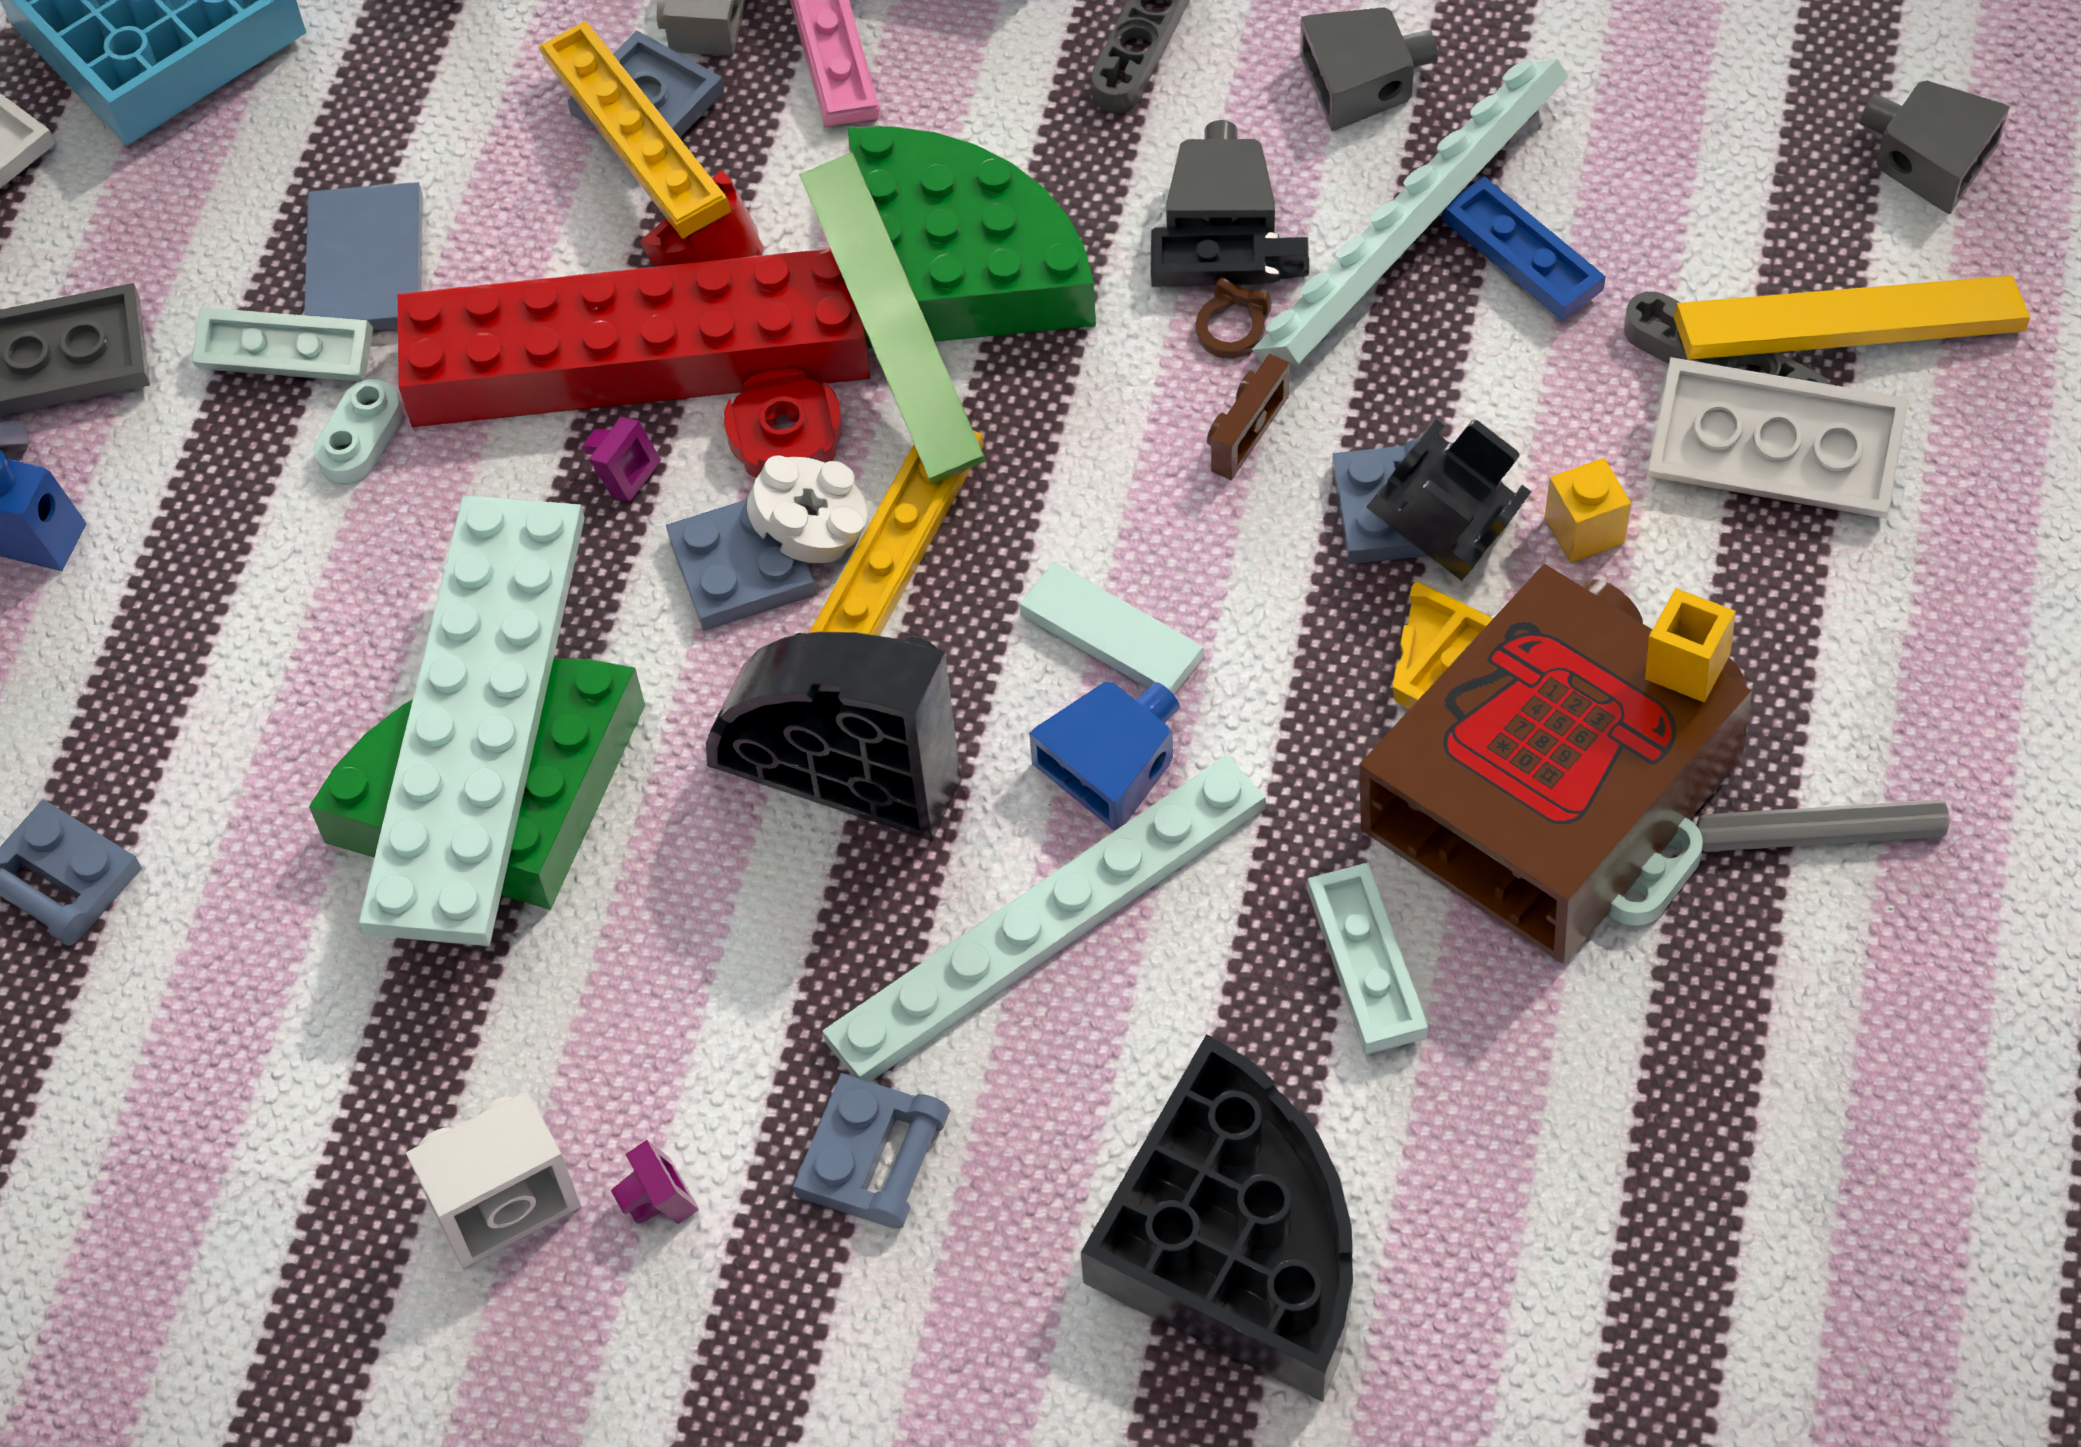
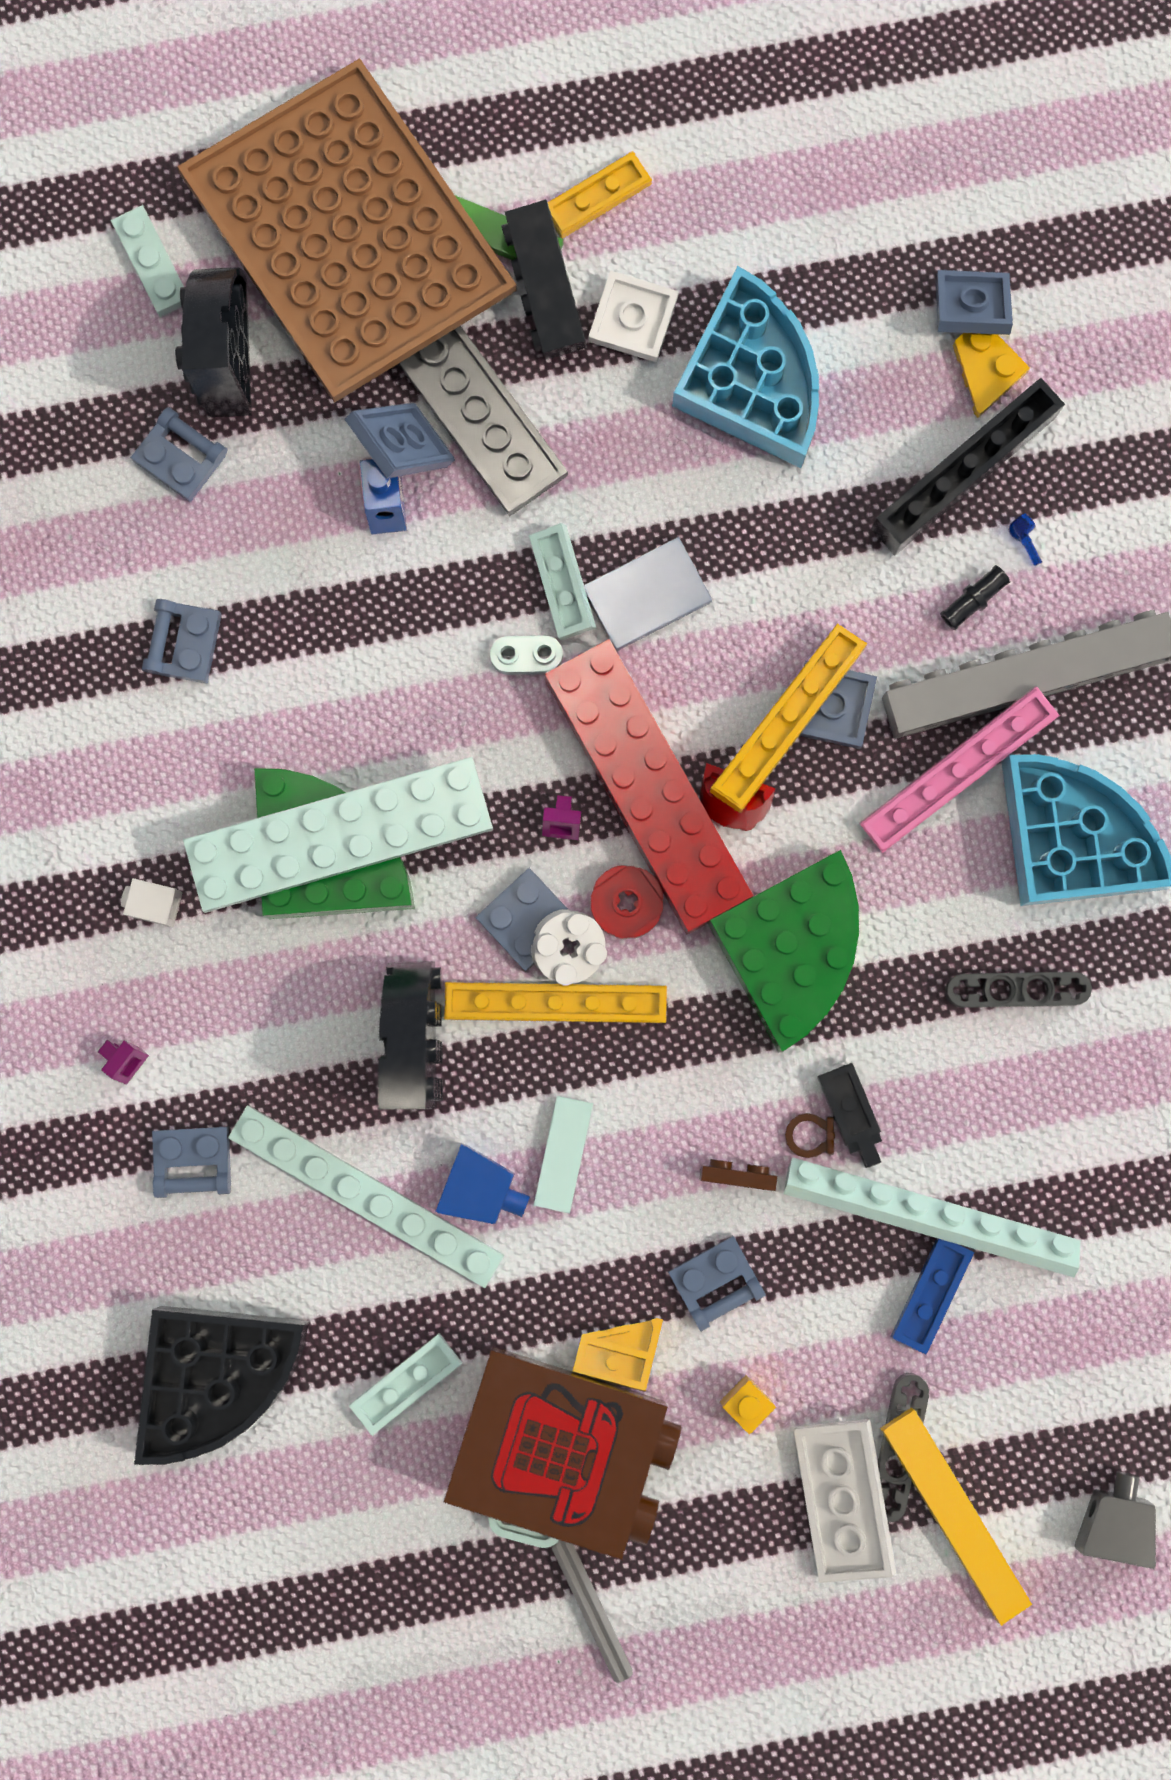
camera: 65 degrees right, 25 degrees up
(431, 1051) = (151, 902): none -> white brick
(494, 1178) = (83, 979): white brick -> none
(892, 318) = (705, 942): tile -> none
(1220, 181) = (902, 1092): dark grey torso -> none
(1361, 62) = (1037, 1140): dark grey torso -> none
(1452, 495) = (718, 1324): black panel -> none
(1690, 644) = (620, 1522): yellow brick -> none

